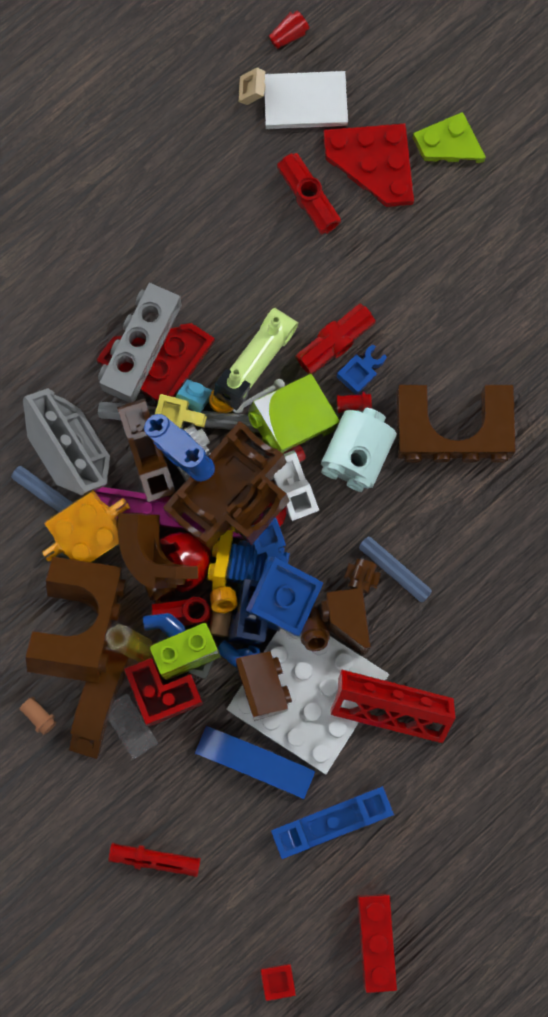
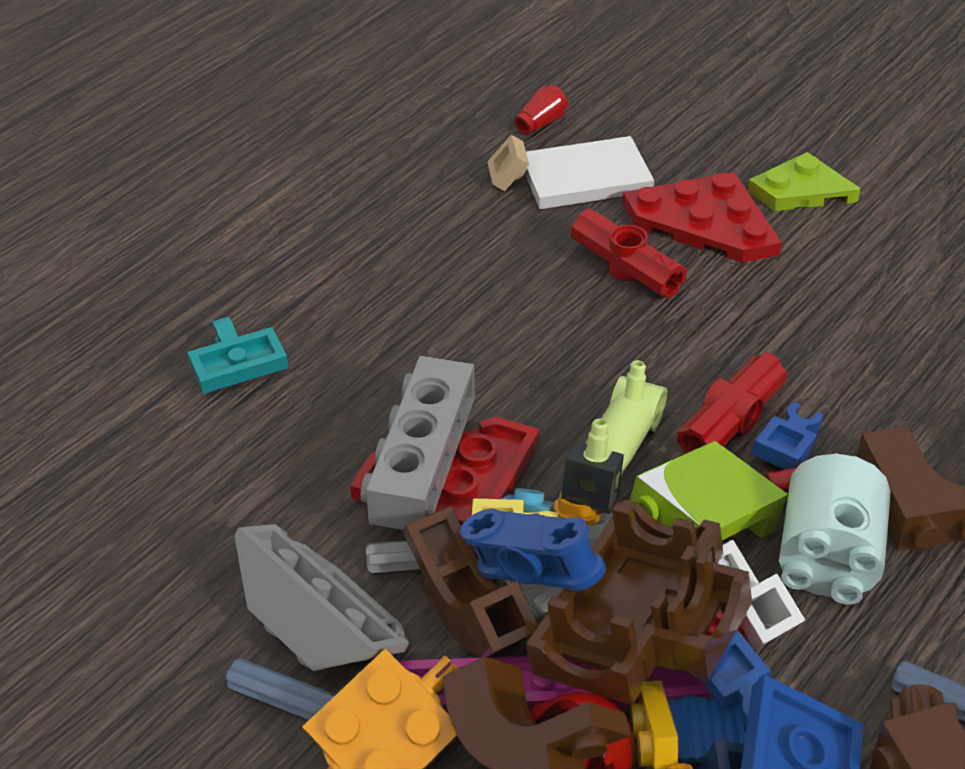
camera: 10 degrees left, 35 degrees down
(44, 239) = (235, 357): none -> teal plate

